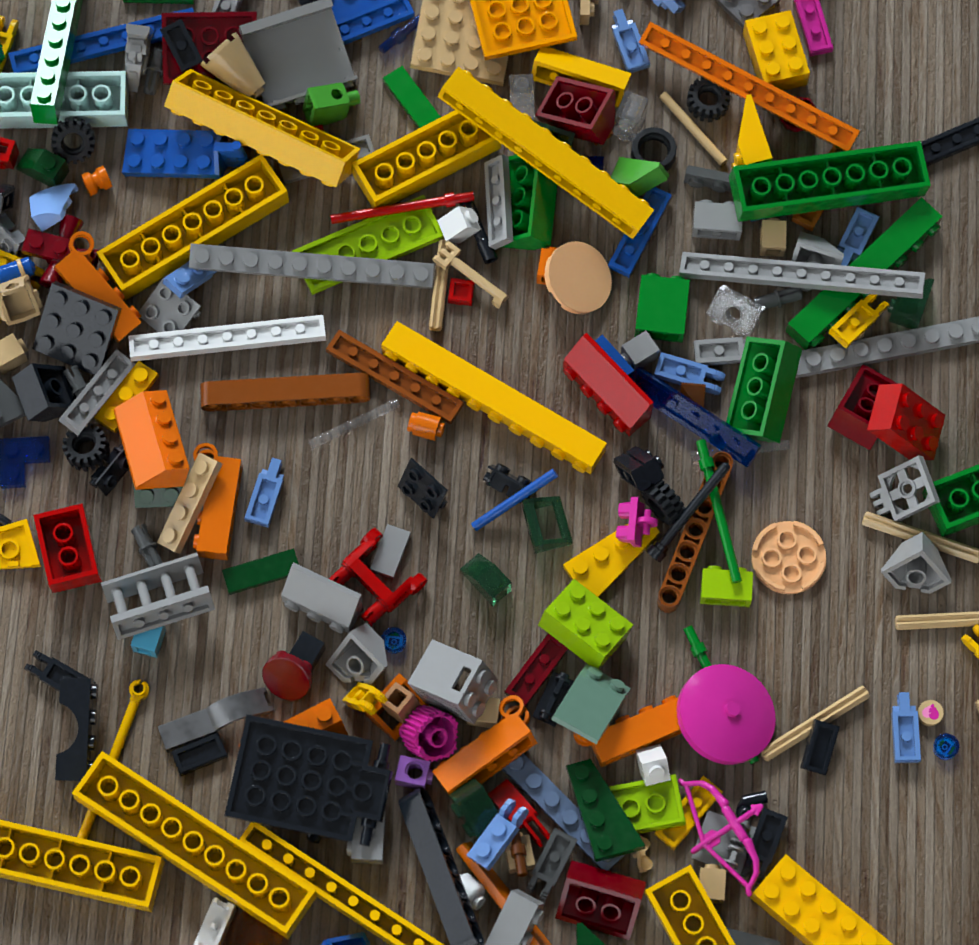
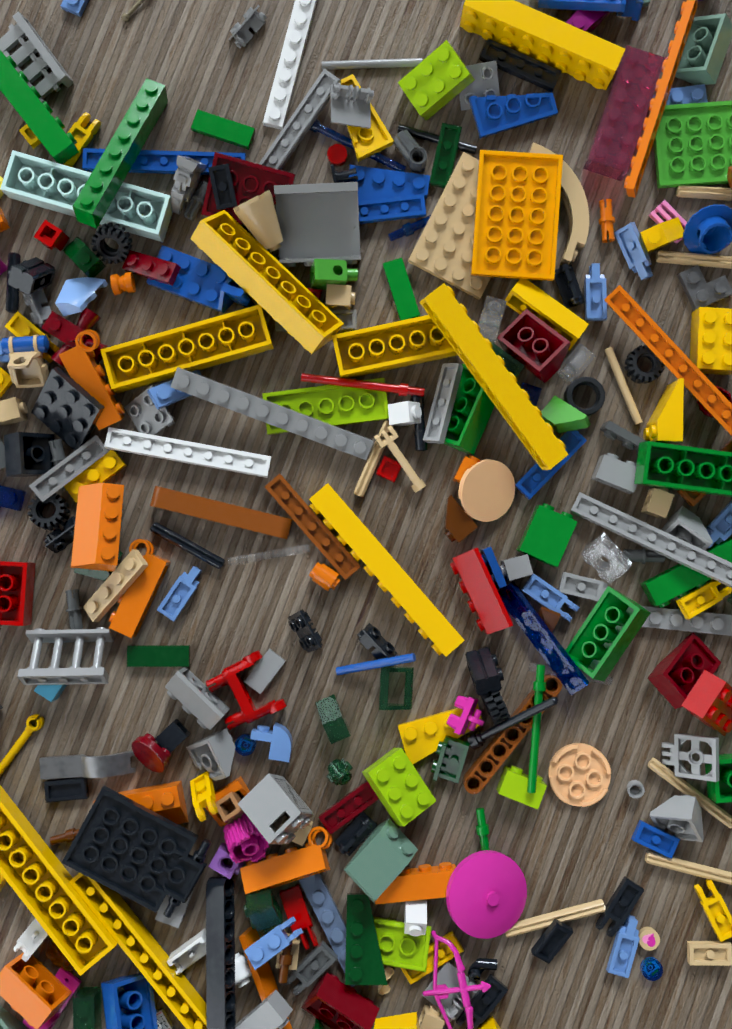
camera: 20 degrees right, 15 degrees up
(125, 153) = (151, 267): none -> dark red plate
(218, 805) = (68, 836): none -> reddish brown bar
(257, 440) = (187, 545): none -> black axle
(346, 124) = (339, 297): none -> tan brick
(405, 890) = (188, 952): none -> white hinge
(430, 616) = (280, 740): none -> medium blue brick
(512, 632) = (339, 772): none -> clear green gear
(556, 322) = (457, 522): none -> reddish brown slope
(596, 42) = (568, 286): none -> black hinge
(635, 580) = (451, 759): none -> bracket
(856, 544) = (635, 792): none -> light grey hinge
(884, 683) = (620, 906): none -> black hinge
(898, 598) = (655, 839): none -> blue plate

